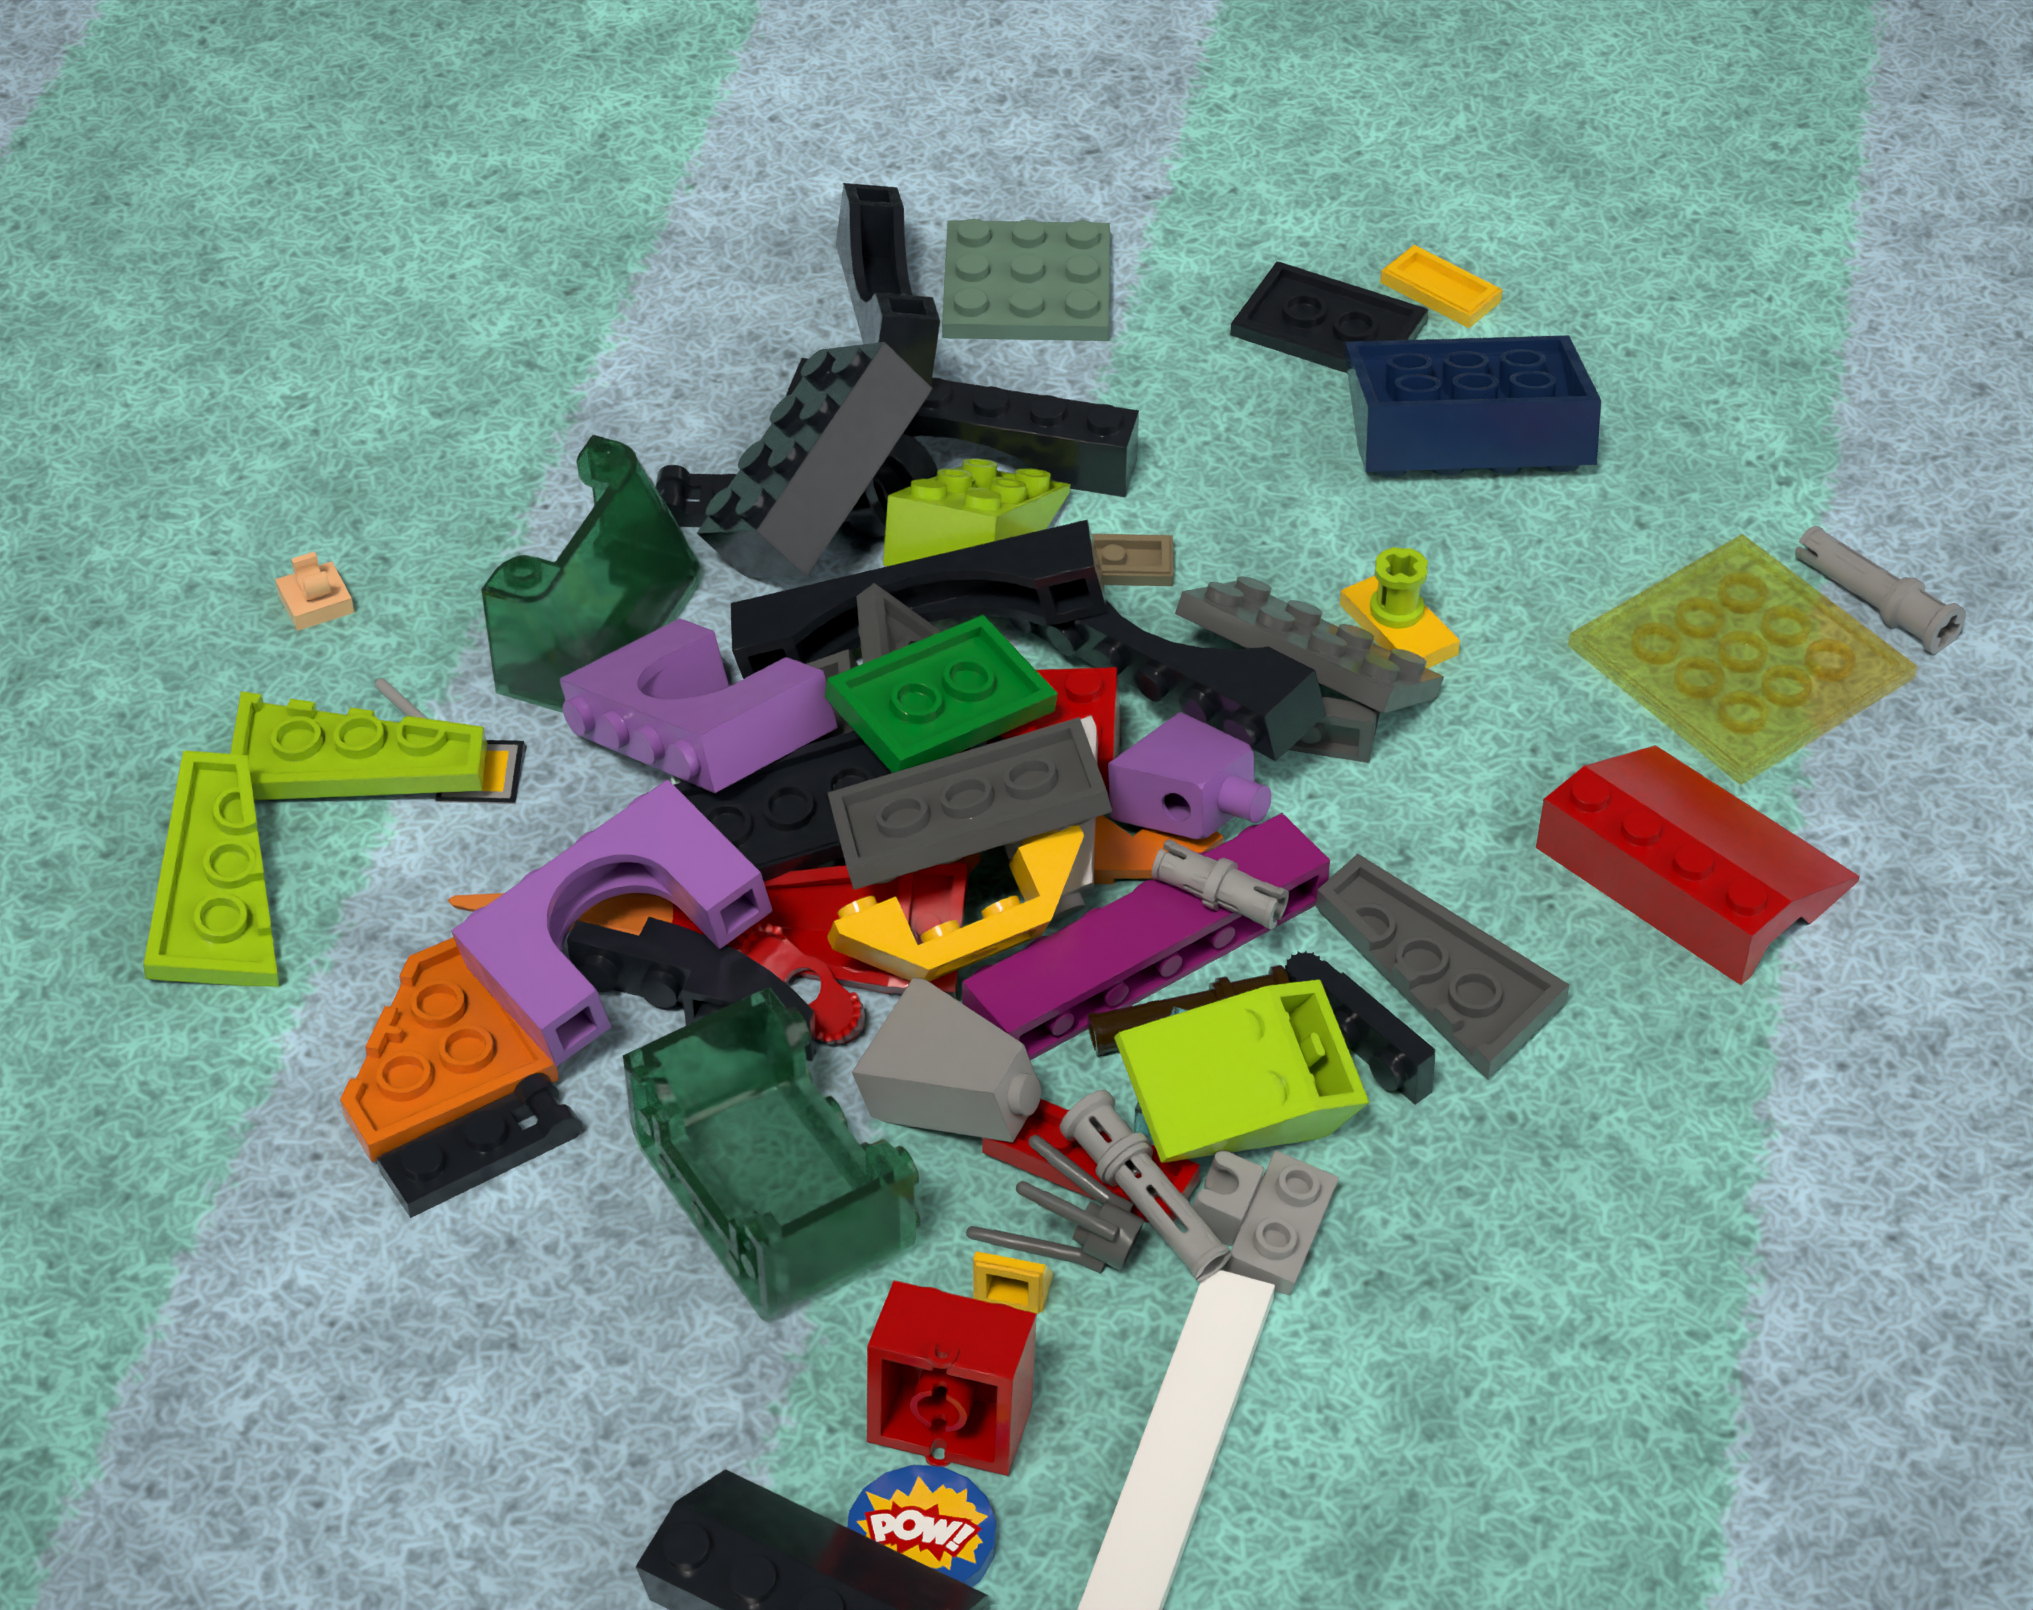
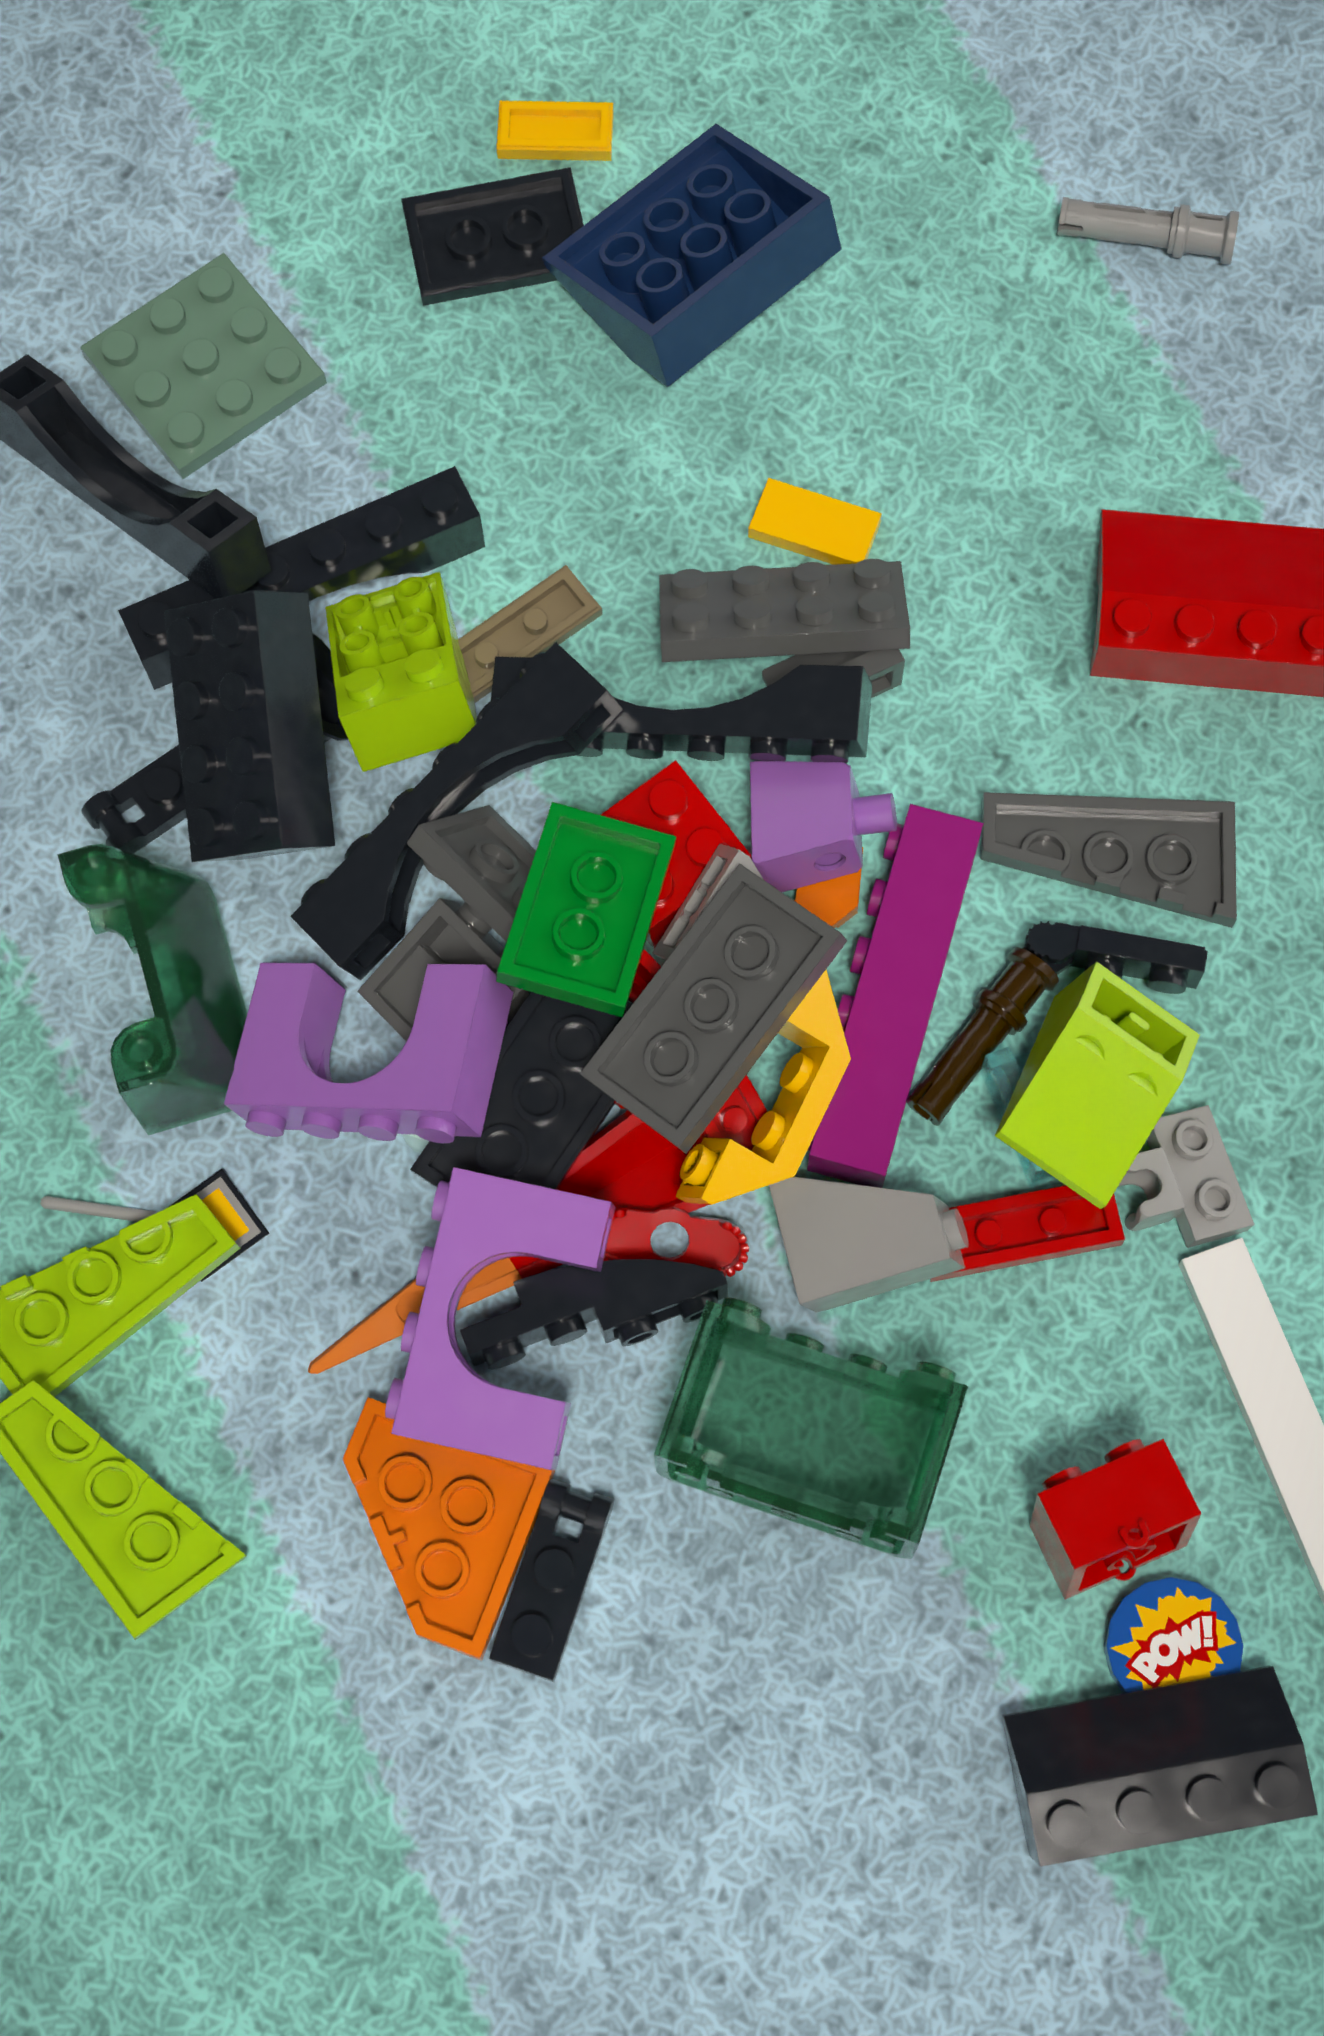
camera: 35 degrees left, 25 degrees up
(1011, 1281) = (1053, 1379): yellow slope -> none
(1104, 1230) = (1088, 1294): dark grey plant -> none
(1127, 1157) = (1066, 1234): light grey pin -> none
(1220, 884) = (933, 917): light grey pin -> none
(1398, 595) = (820, 513): lime bush -> none
(1742, 658) = (1096, 371): clear yellow tile -> none

